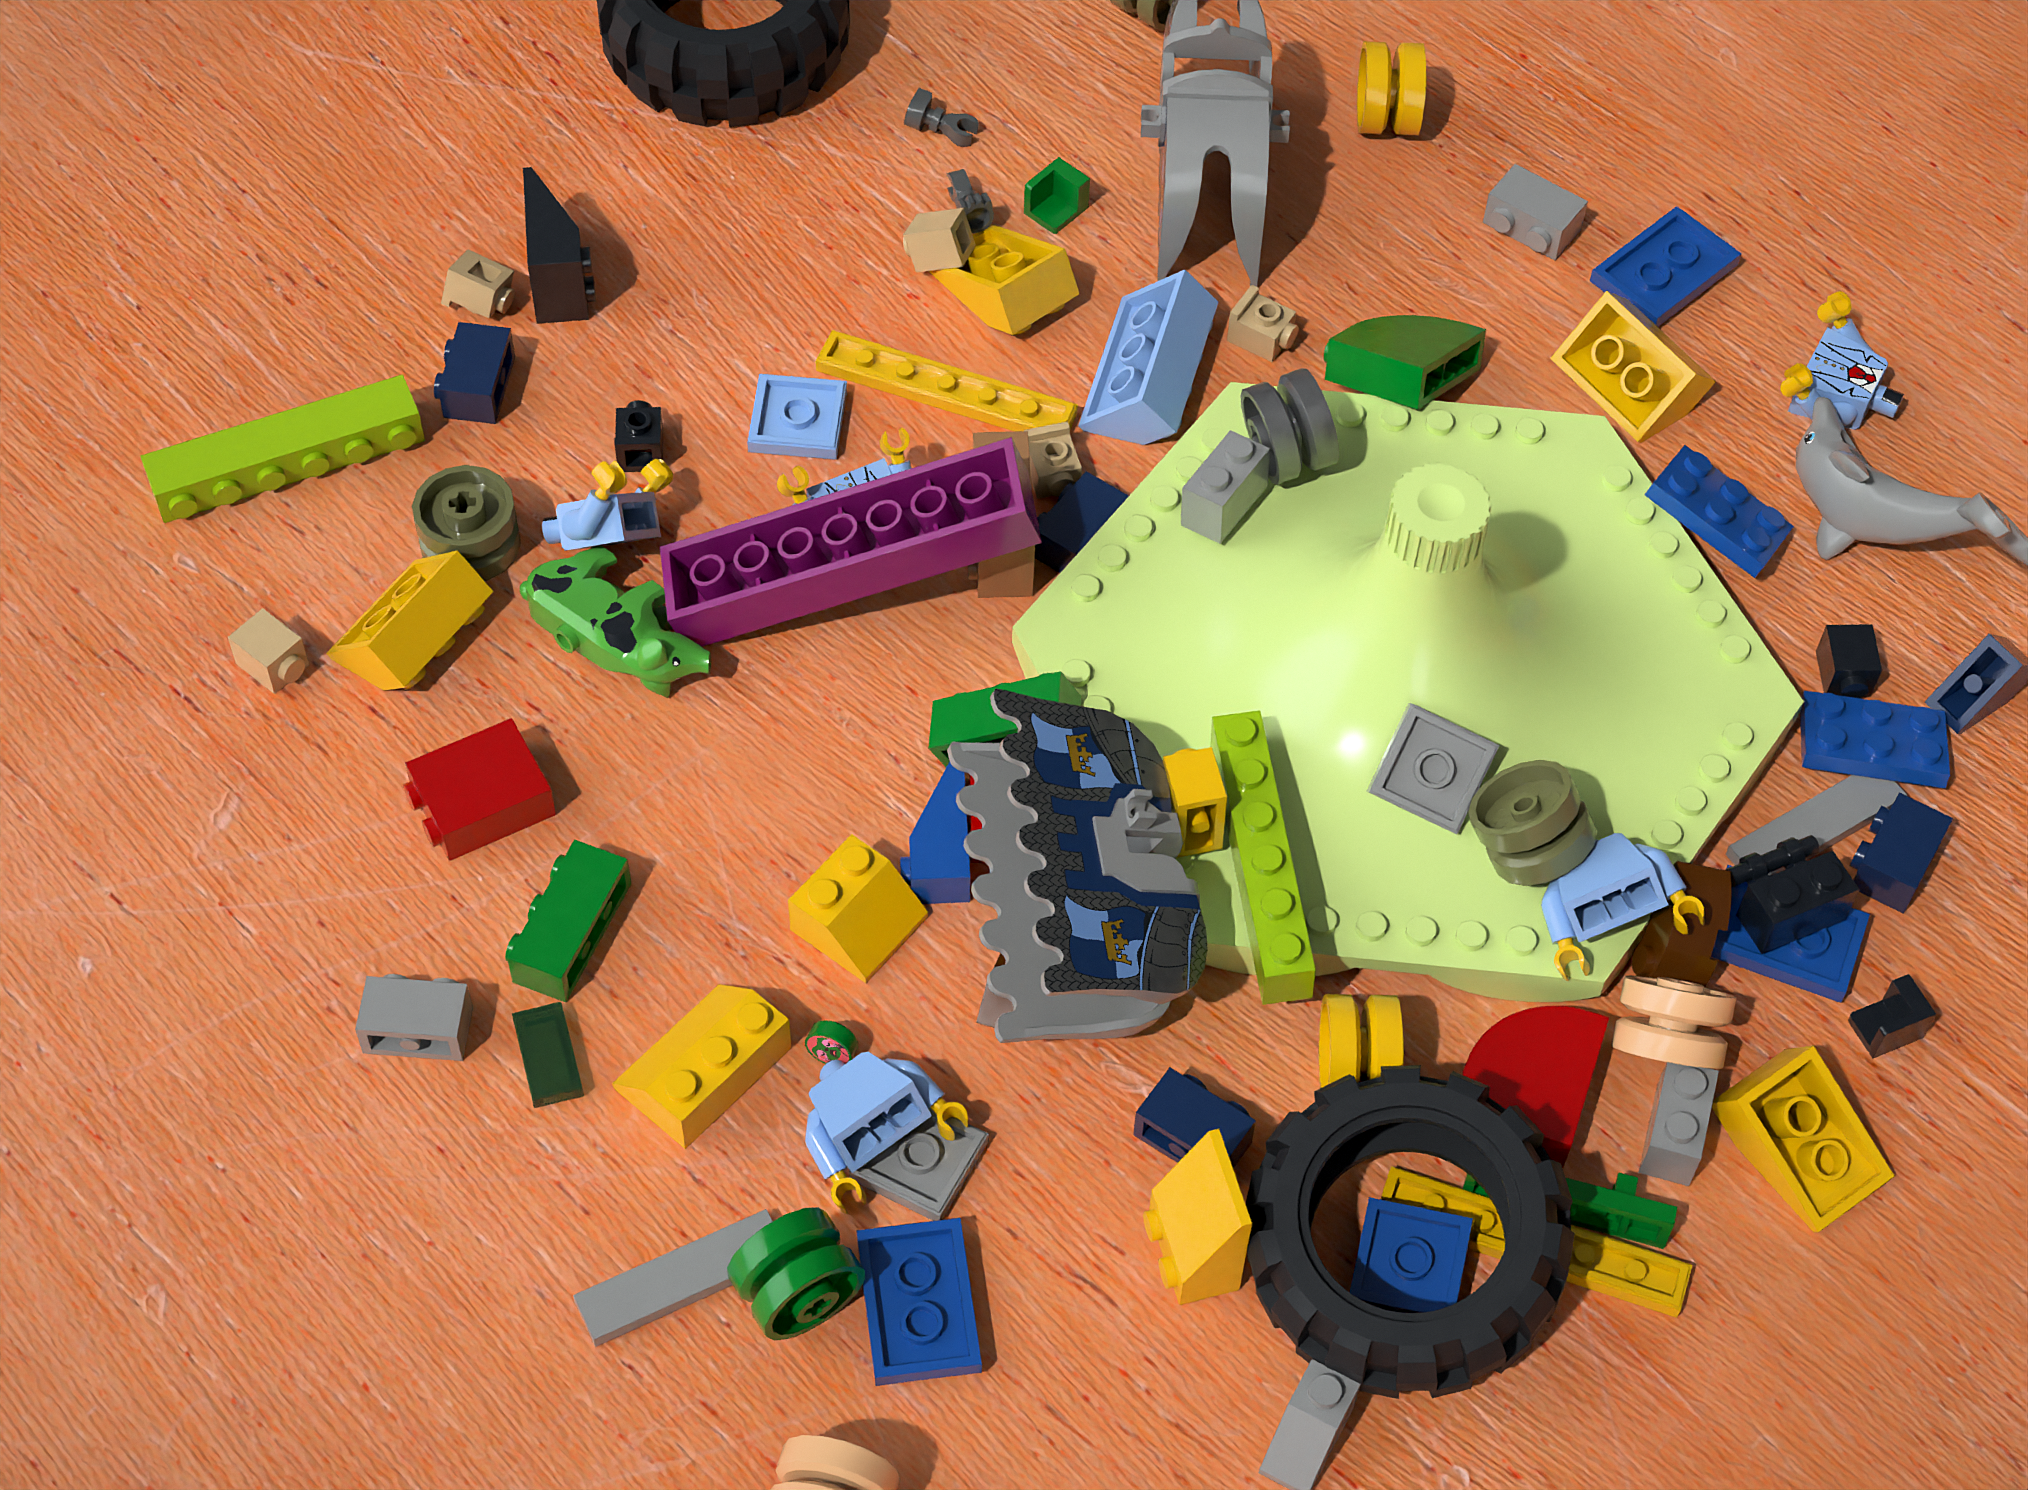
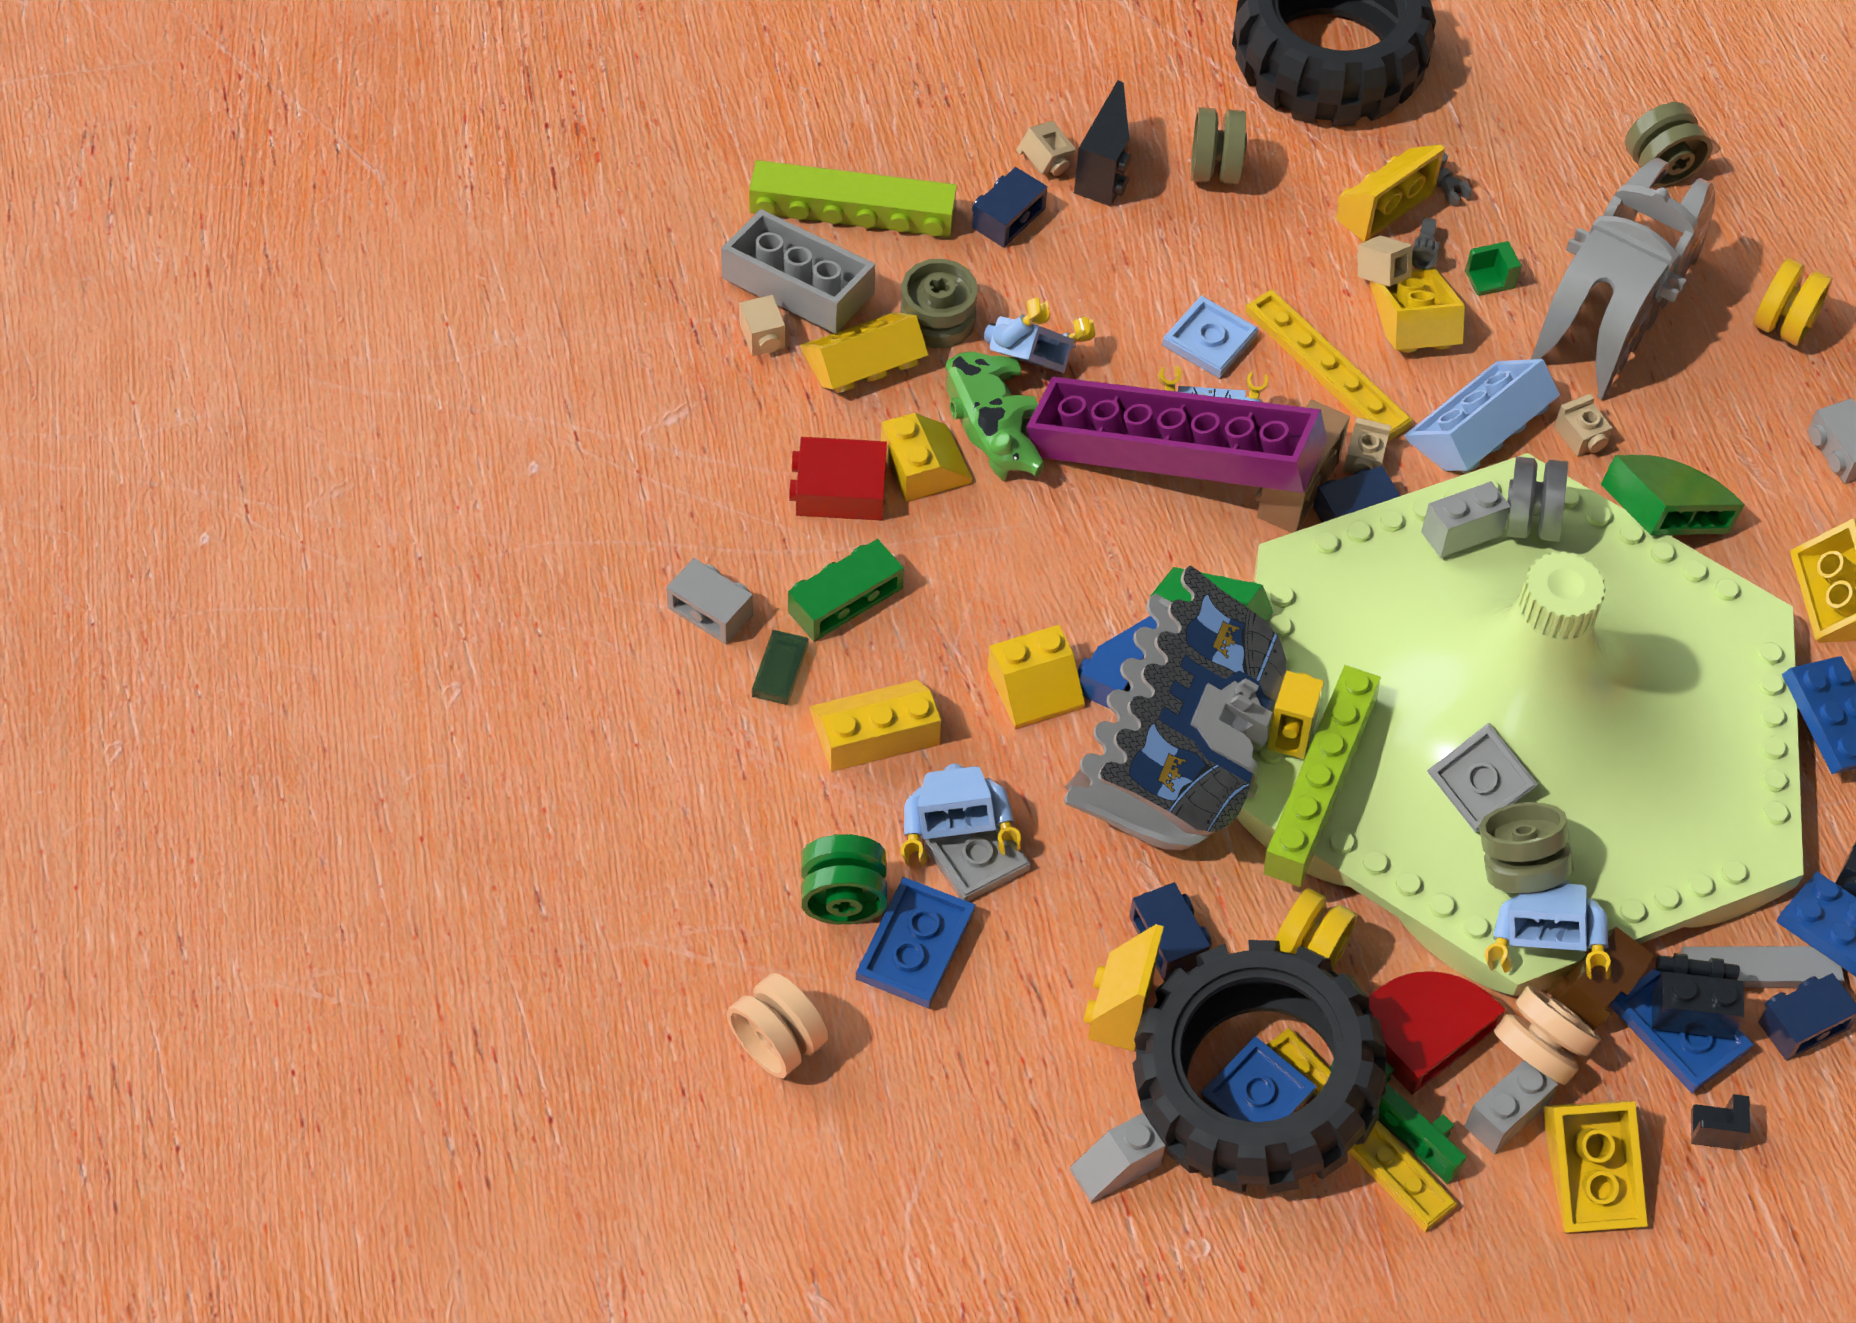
camera: 30 degrees right, 0 degrees up
(276, 562) = (798, 270): none -> light grey brick
(560, 715) = (923, 456): none -> yellow slope
(638, 428) = (1092, 293): black brick -> none
(664, 1282) = (754, 845): light grey tile -> none
(677, 193) = (1220, 146): none -> olive wheel
(831, 1042) = (964, 751): green tile -> none
(893, 159) = (1390, 191): none -> yellow slope

